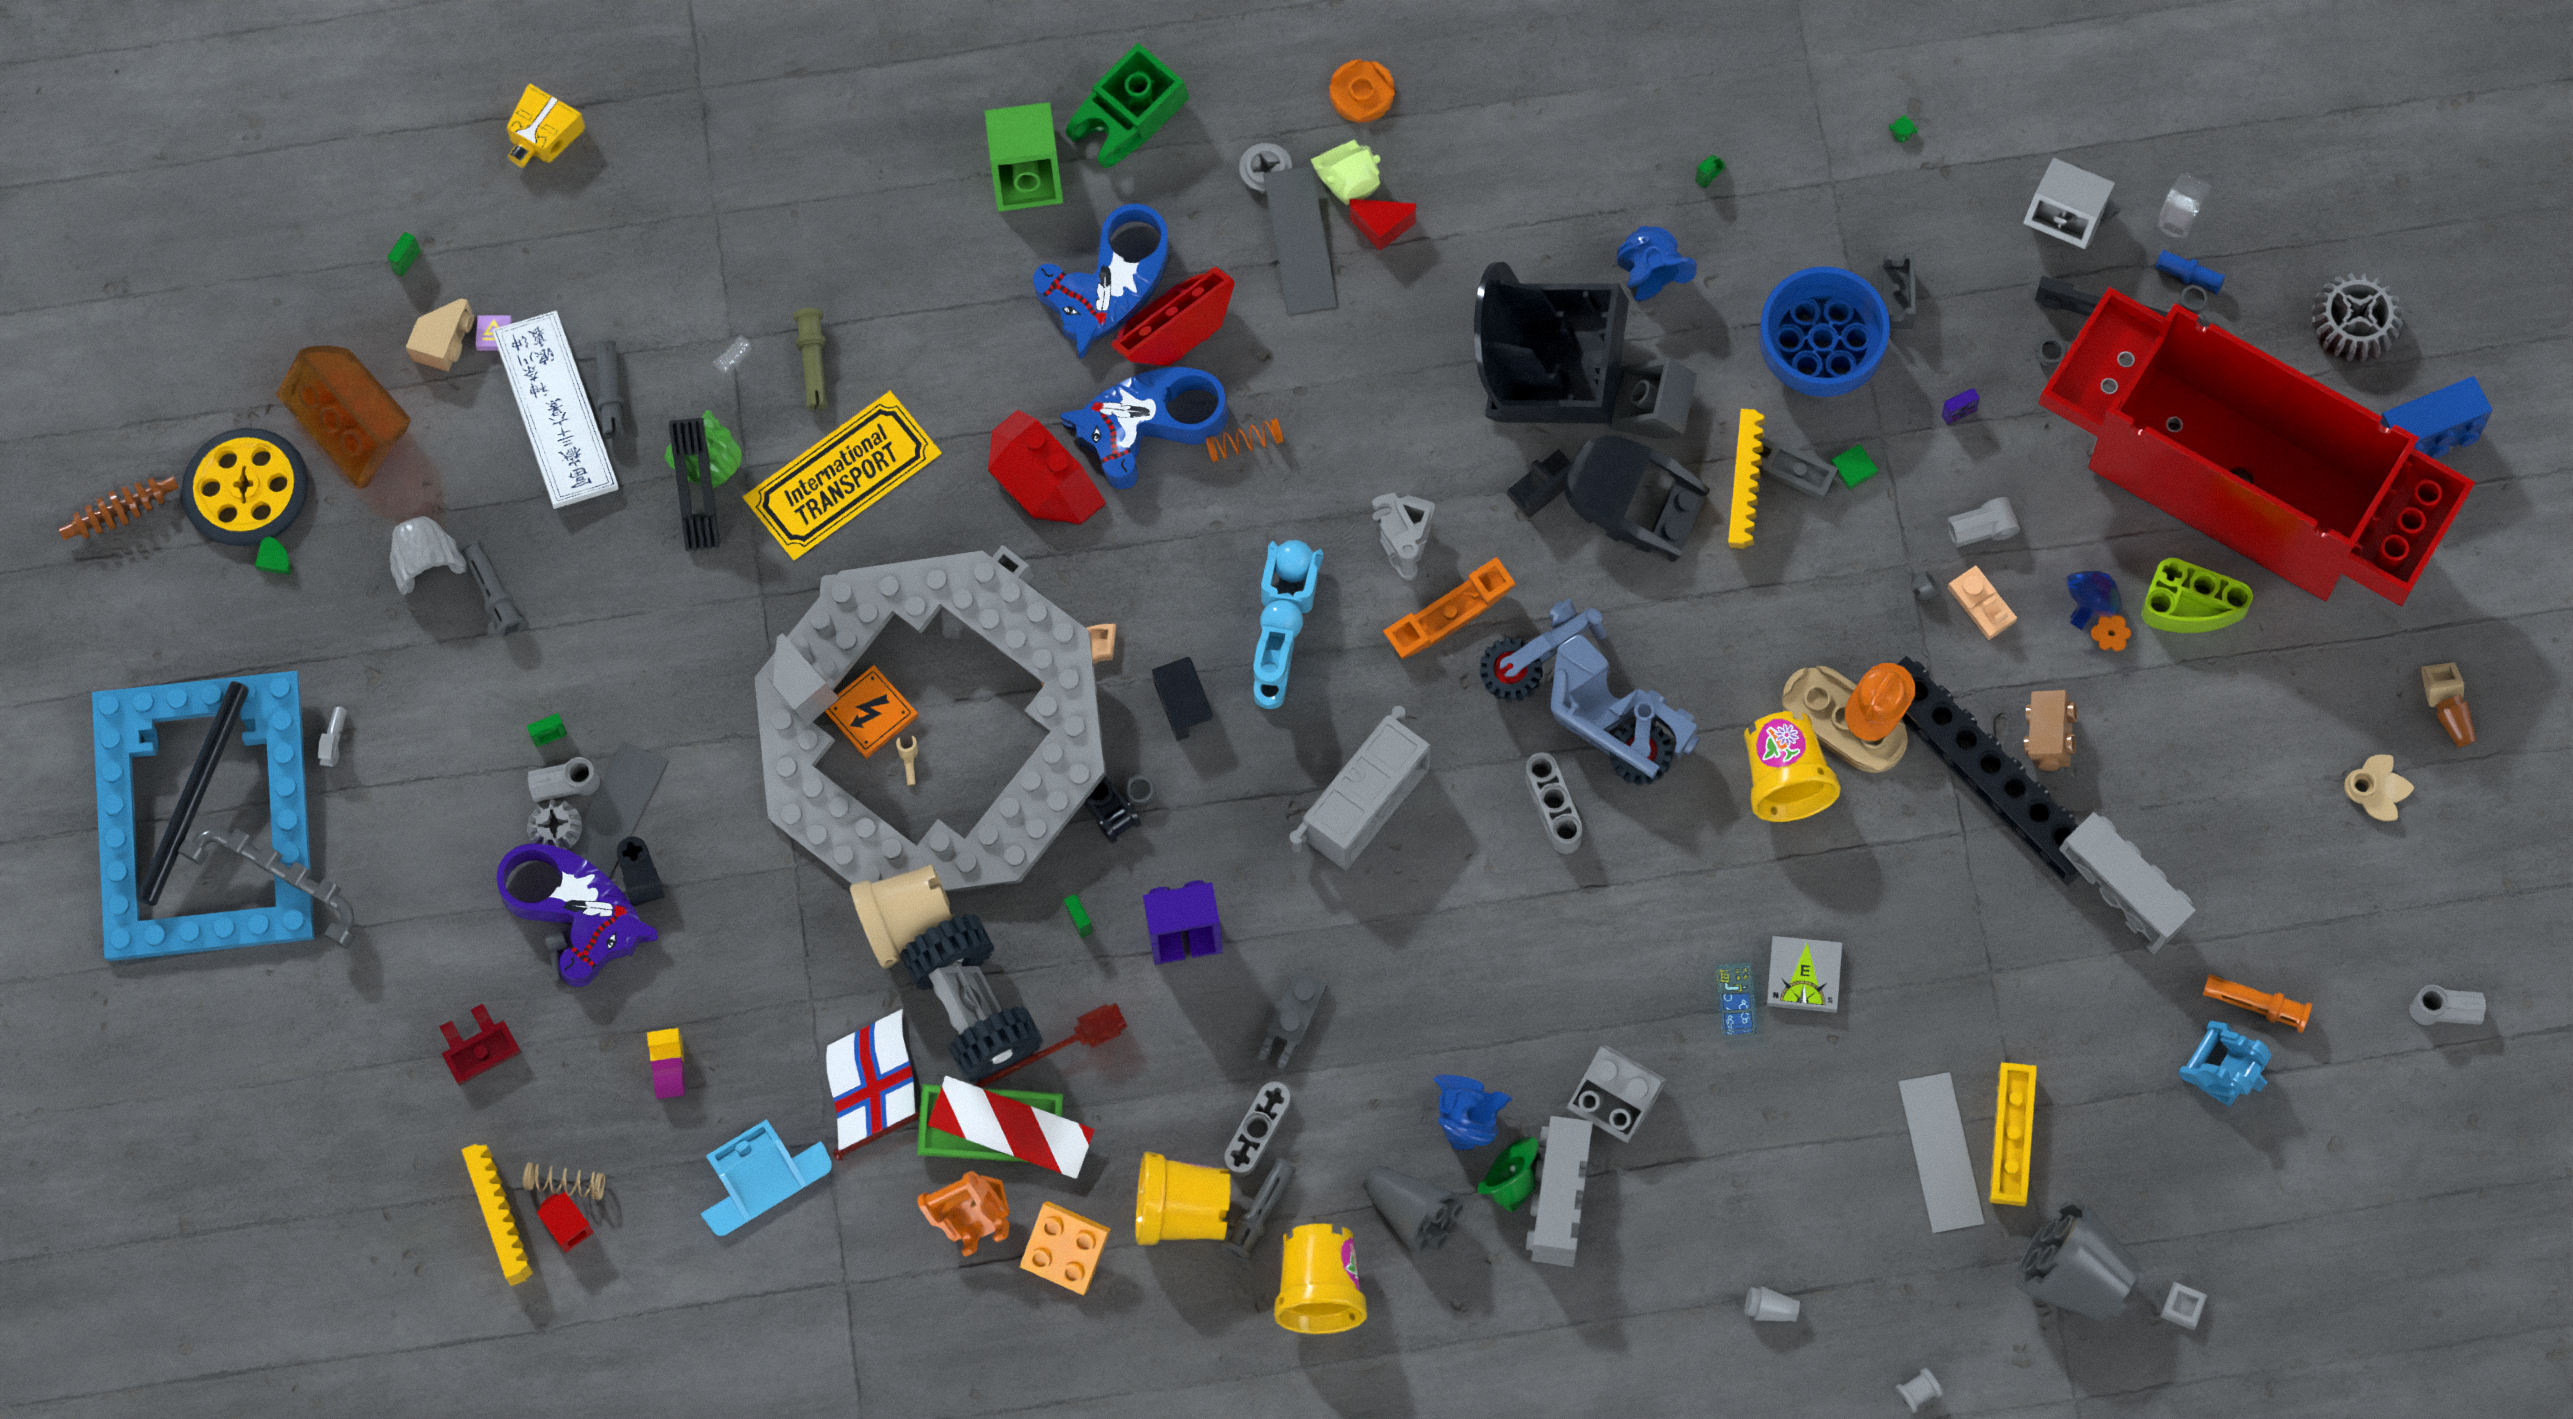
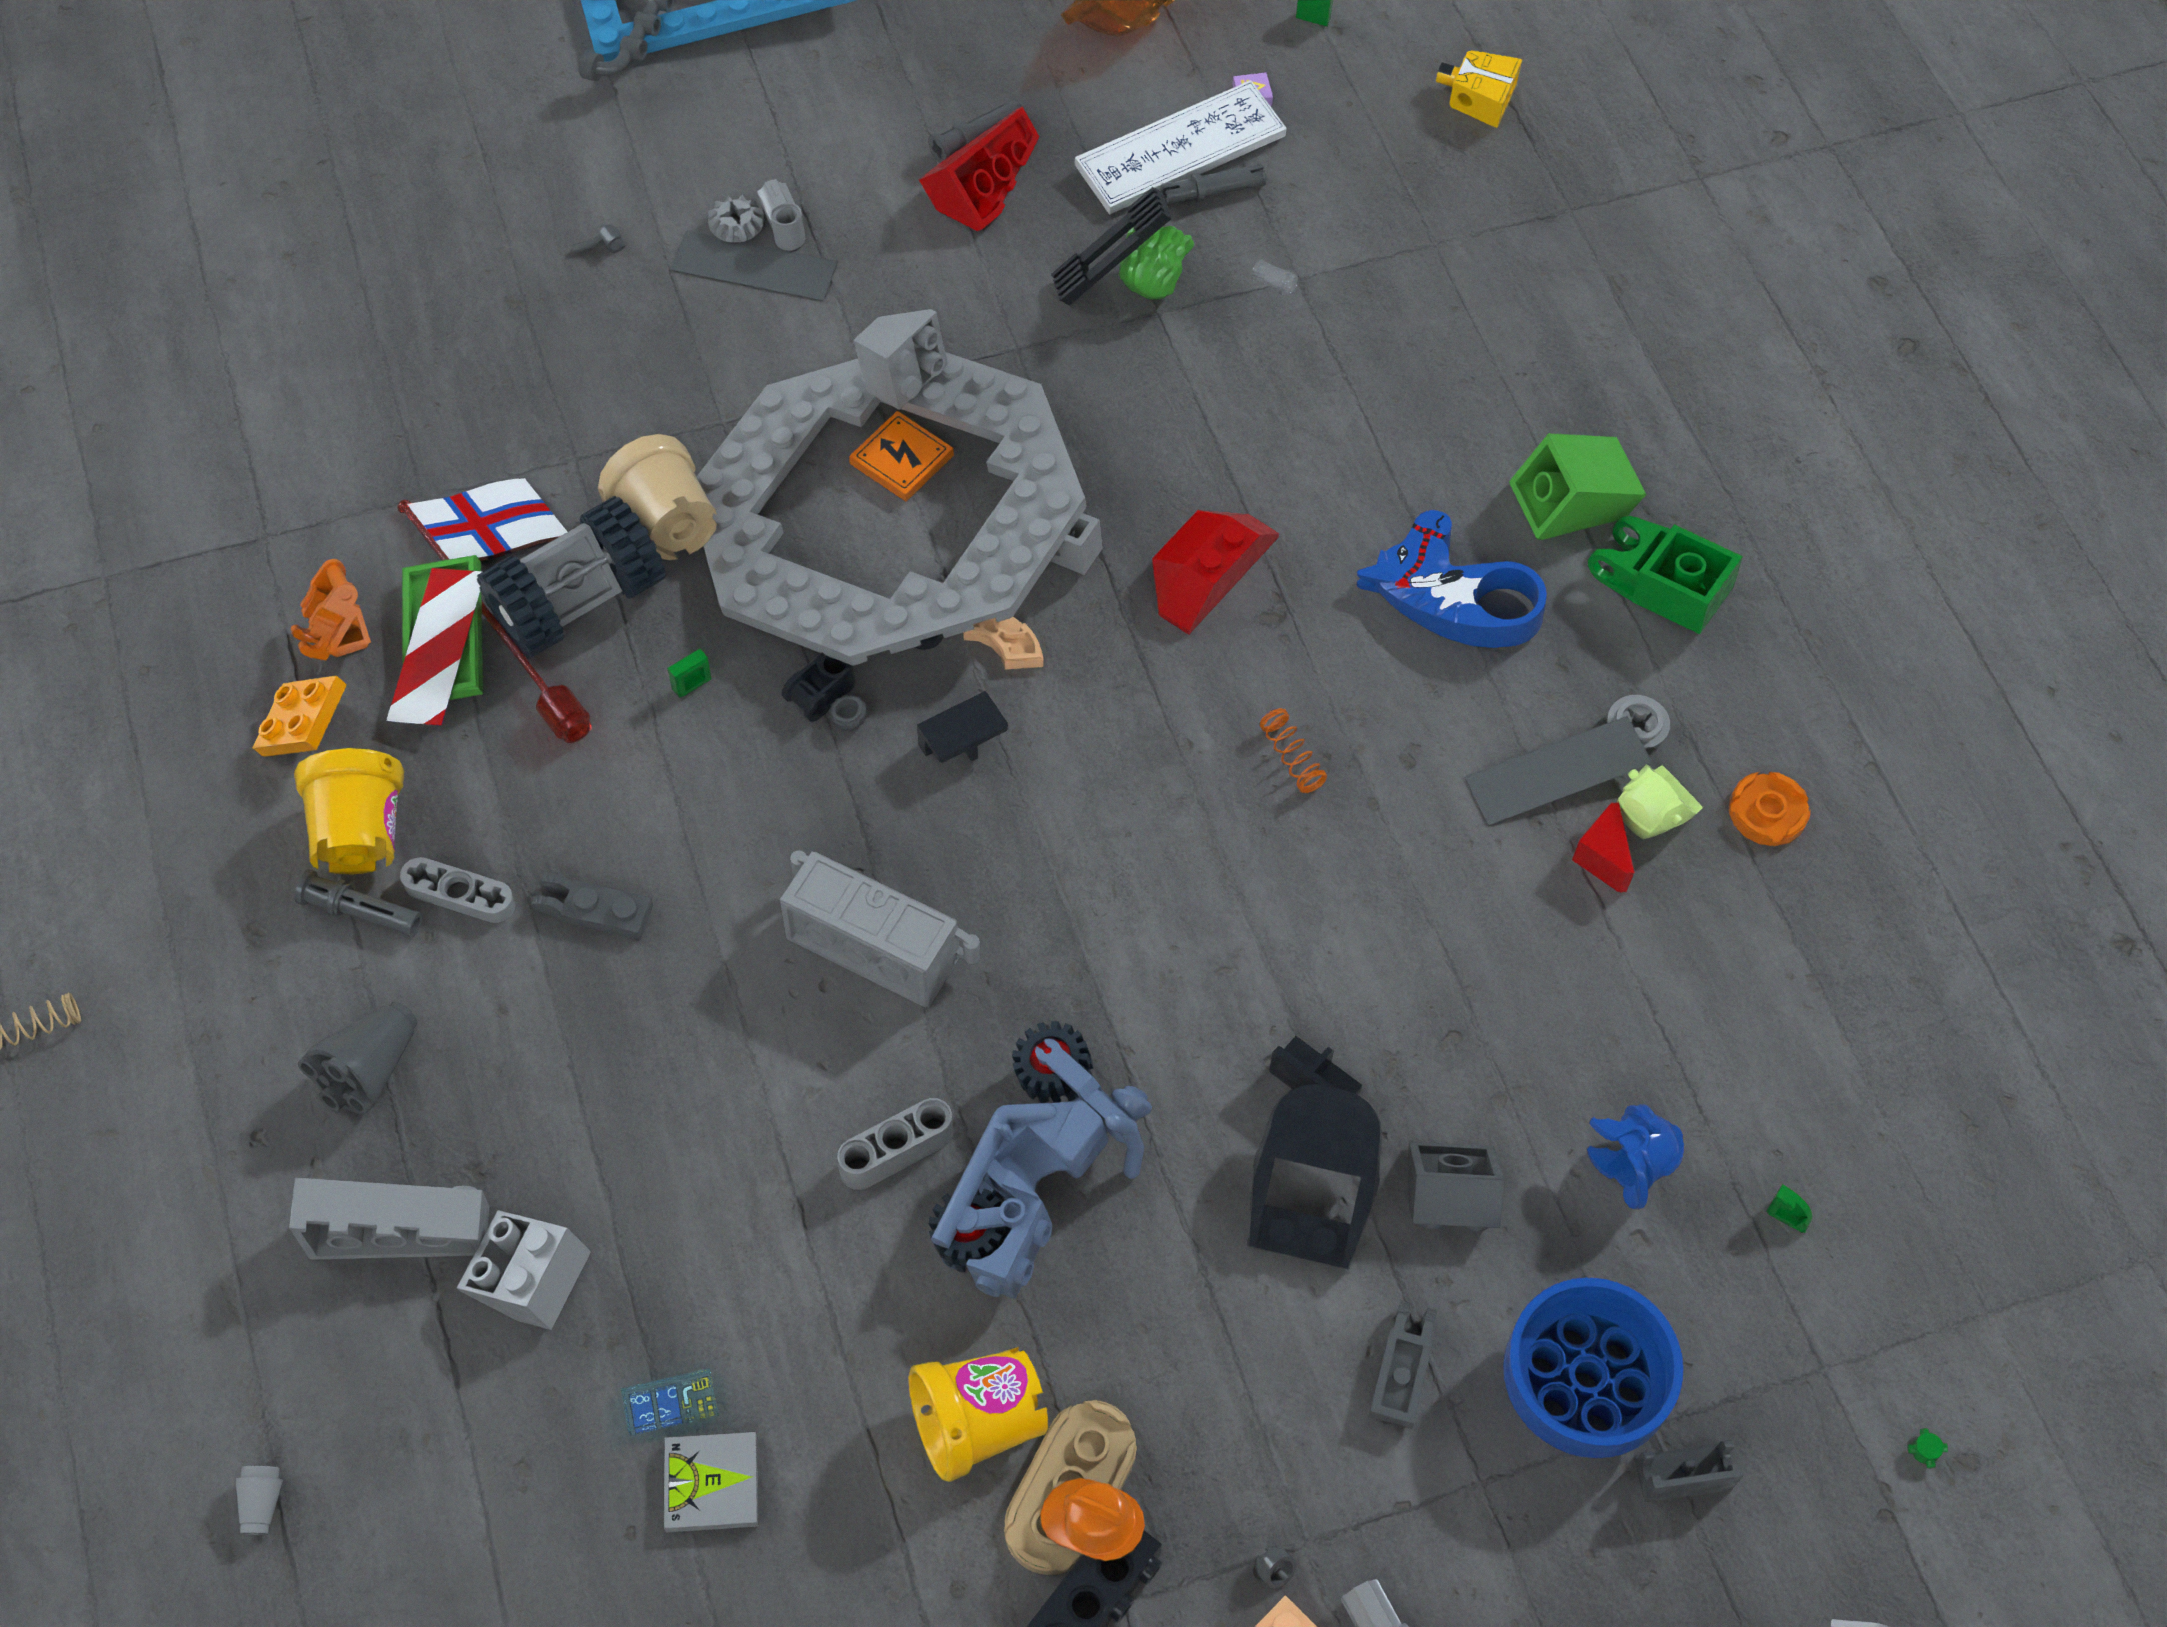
camera: 75 degrees right, 10 degrees down
(328, 744) = (787, 34): light grey bar -> none
(418, 547) = (1005, 60): light grey hair -> none
(439, 335) = (1237, 46): tan slope -> none
(481, 1052) = (488, 197): dark red plate -> none
(497, 1213) = (319, 233): yellow gear -> none
(530, 1177) = (362, 264): tan piece -> none
(547, 730) = (833, 192): green tile -> none
(552, 599) = (981, 173): none -> red wedge
(564, 1221) = (314, 288): red brick -> none
(599, 912) = (656, 251): dark purple animal -> none
(639, 875) = (689, 290): black piece -> none
(667, 1063) = (487, 344): leg -> none
(759, 1175) = (373, 438): medium azure plate -> none
(811, 344) = (1306, 338): olive pin -> none
(842, 475) = (1168, 395): yellow sticker -> none
(908, 756) = (861, 497): tan hand -> none
(1138, 408) = (1303, 638): blue animal -> none
(1176, 320) = (1411, 654): red wedge -> none
(1178, 910) = (678, 756): dark purple piece -> none
(1283, 615) = (1035, 809): medium azure piece -> none
(1319, 1282) = (260, 965): yellow piece -> none
(1403, 530) = (1209, 924): light grey piece -> none
(1451, 611) = (1121, 994): orange slope -> none
(1468, 1111) = (488, 1098): blue helmet -> none
(1511, 1174) = (406, 1161): green piece -> none
(1548, 348) = (1482, 1023): black plate -> none
(1744, 479) = (1365, 1301): yellow gear -> none
(1854, 467) = (1425, 1449): green tile -> none
(1960, 406) = (1543, 1574): dark purple tile -> none

